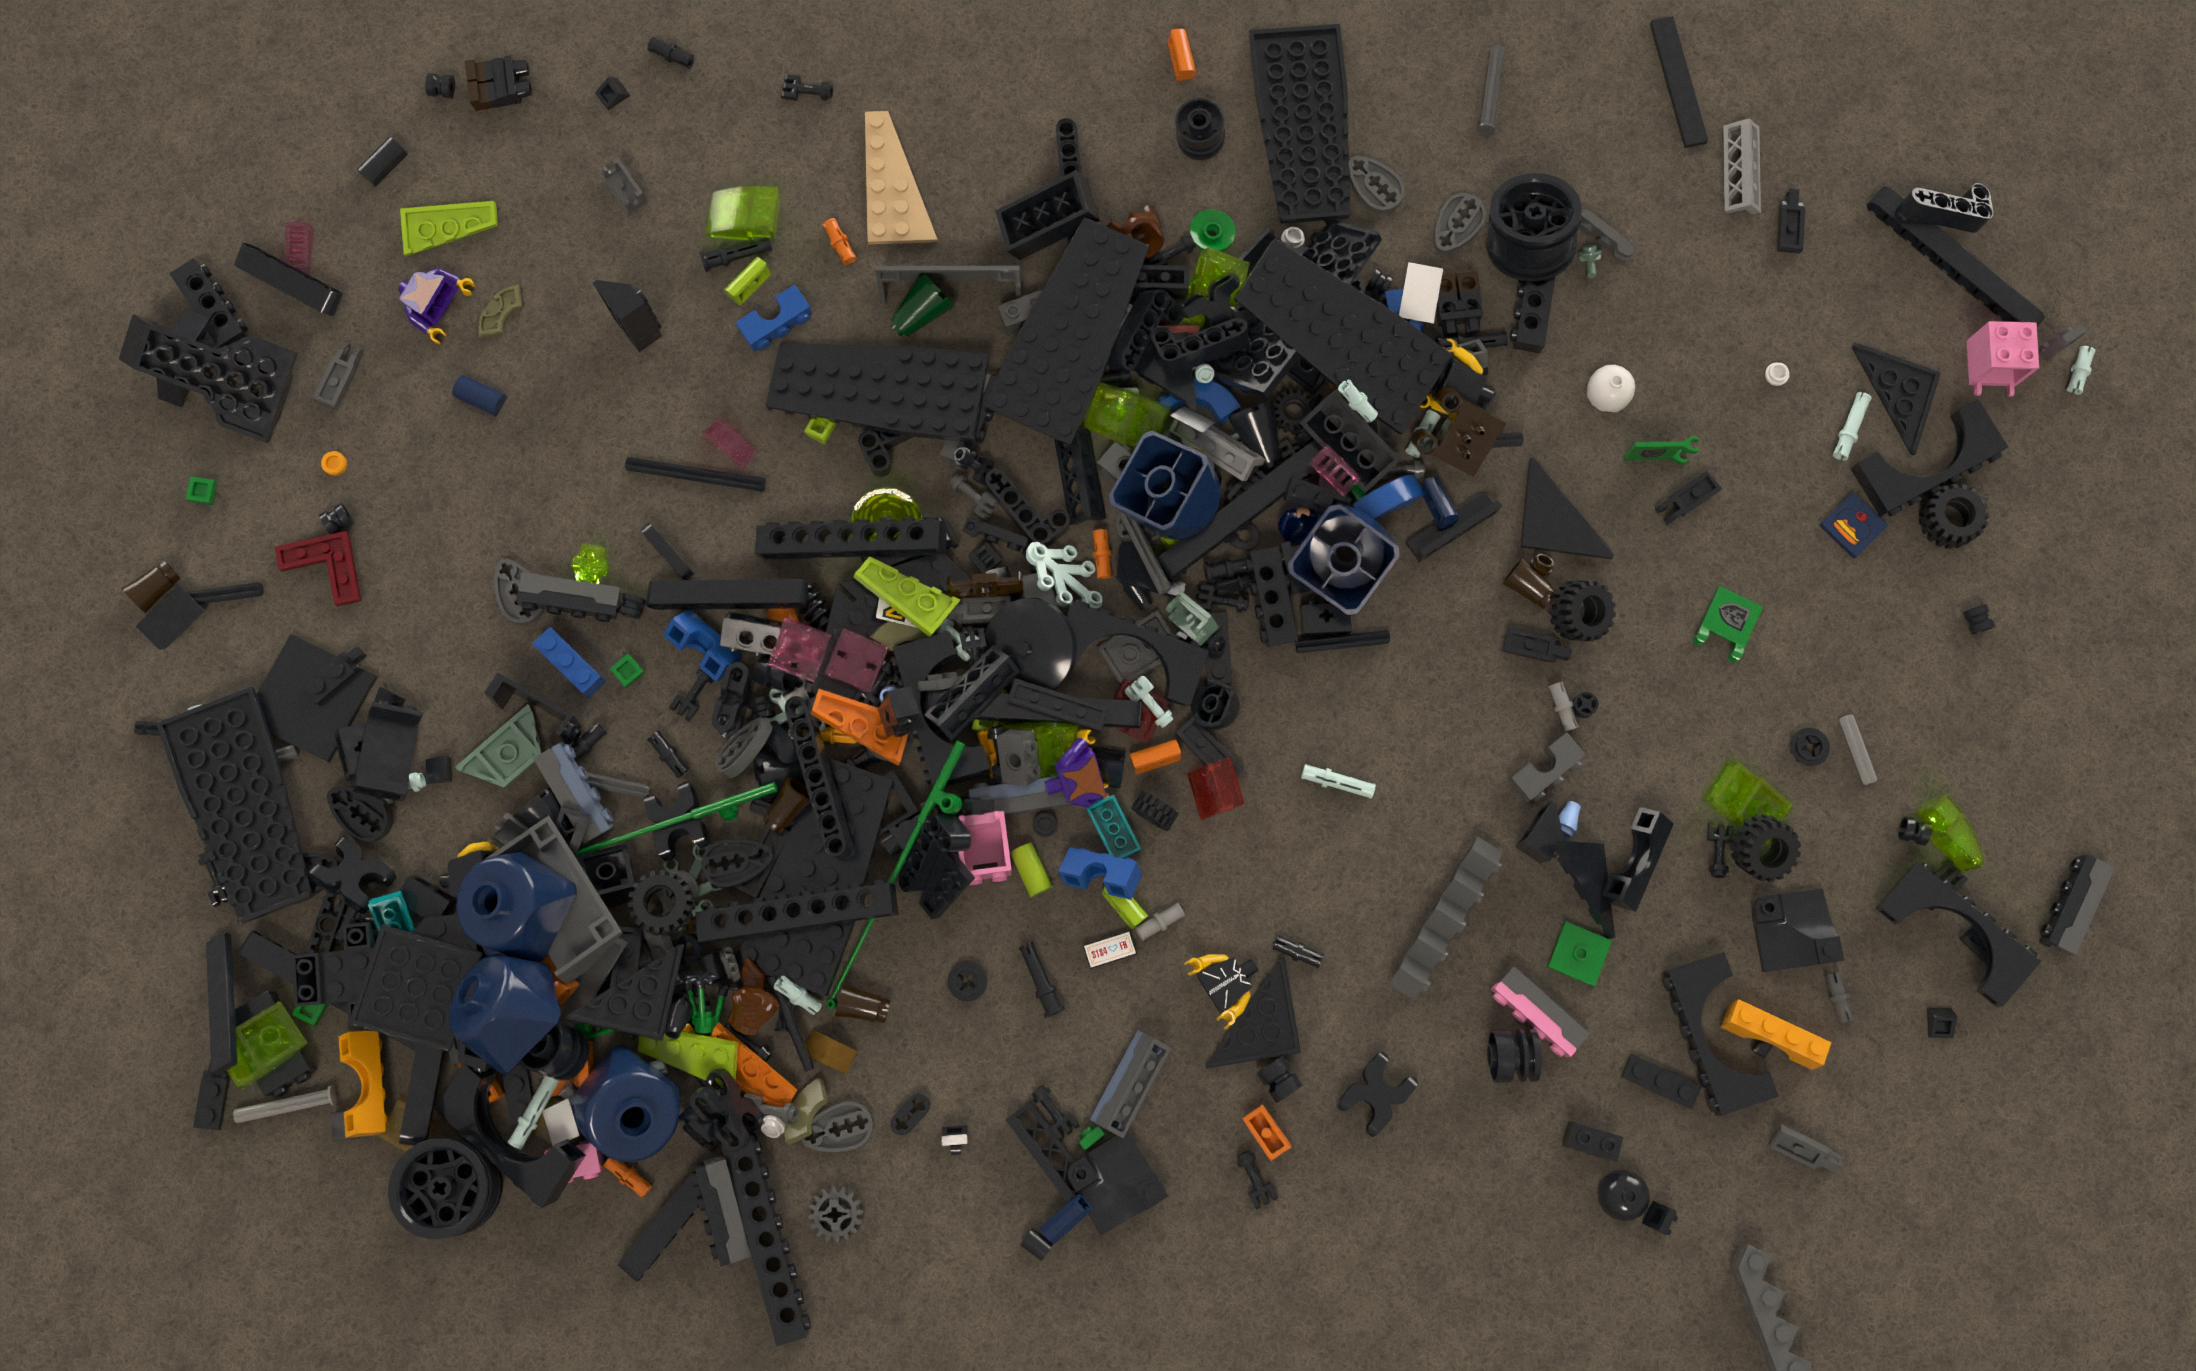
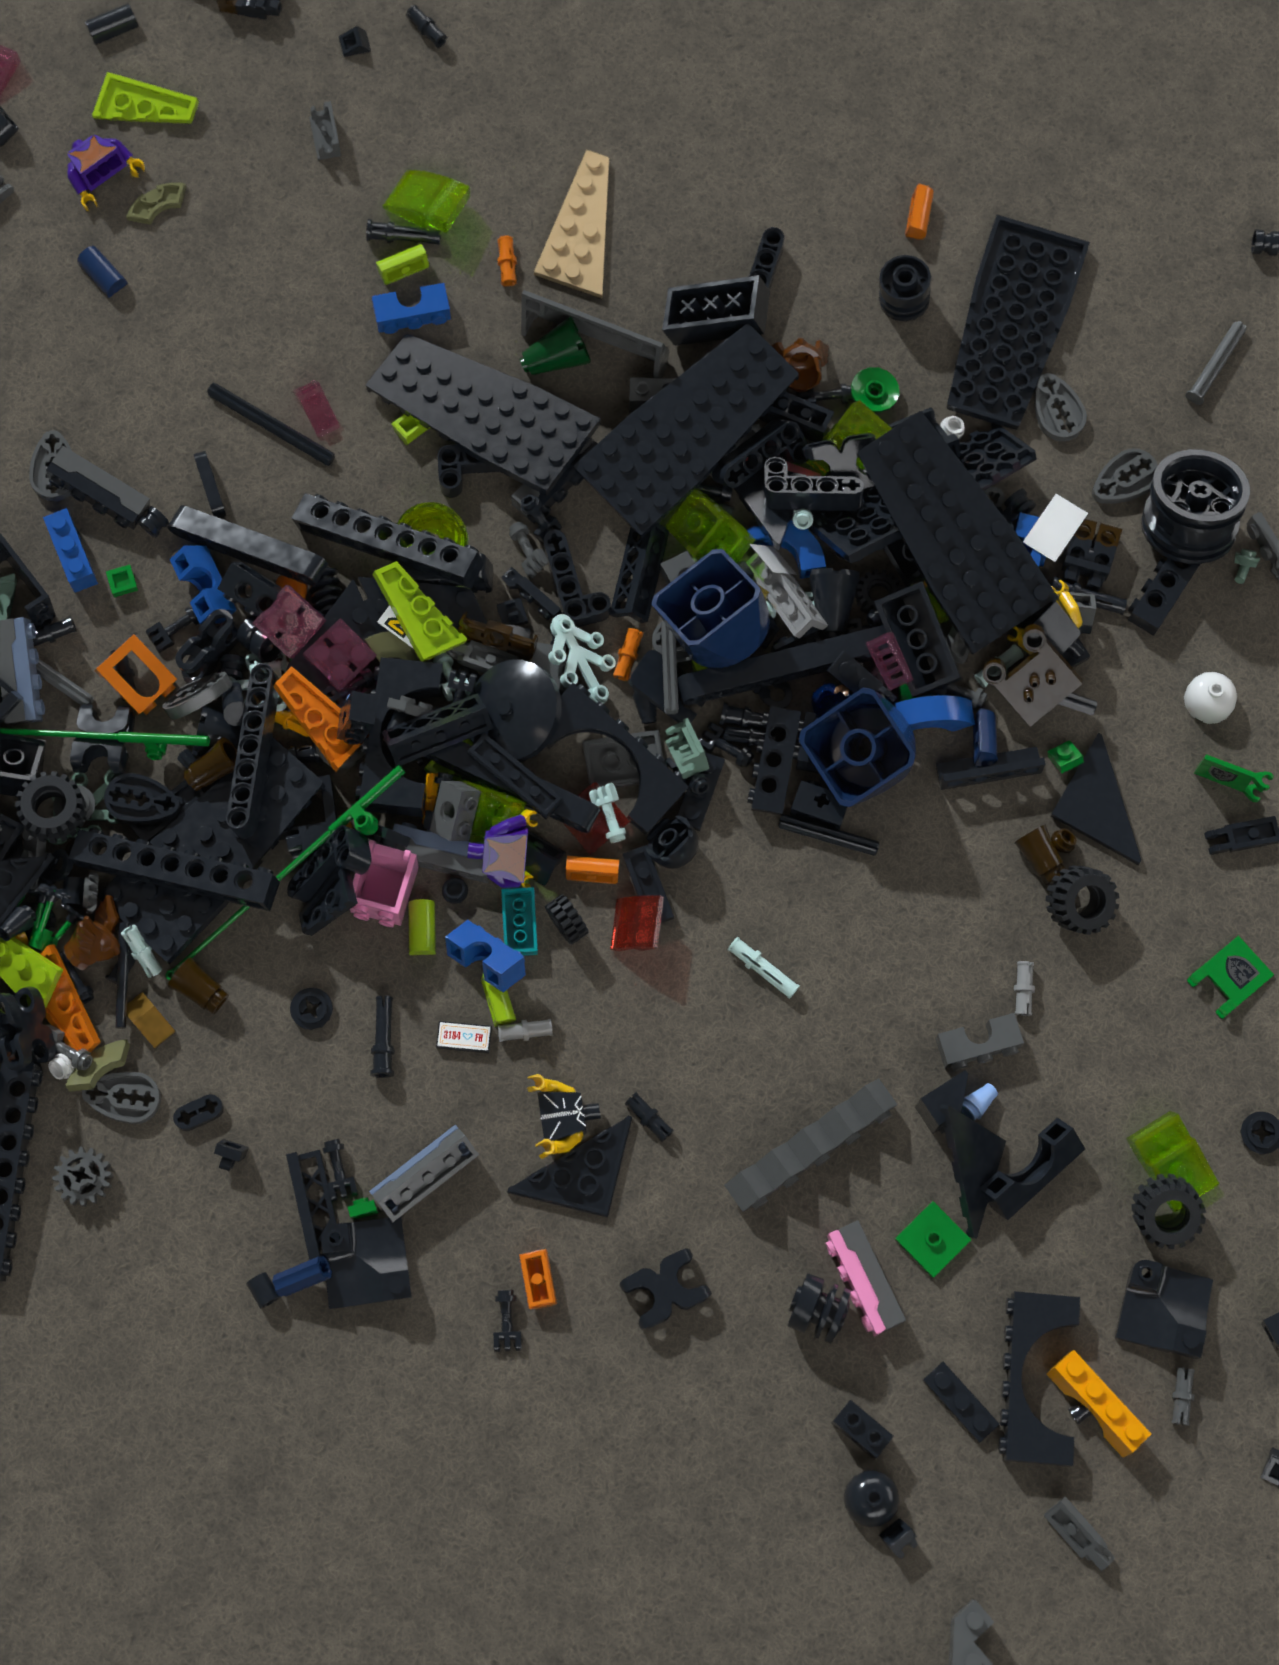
camera: 25 degrees right, 5 degrees down
(590, 563) = (133, 466): clear neon green brick -> none
(630, 312) = (275, 246): black slope -> none
(653, 758) = (136, 701): none -> orange panel
(825, 90) = (556, 115): black hinge -> none
(1279, 1079) = (573, 1231): black wheel -> none
(1358, 401) = (939, 601): light aqua pin -> none
(1512, 490) = (1065, 756): none -> green plate
(1534, 646) = (1021, 917): black hinge -> none
(1588, 702) = (1051, 994): black wheel -> none
(1718, 869) = (1113, 1214): black hinge -> none

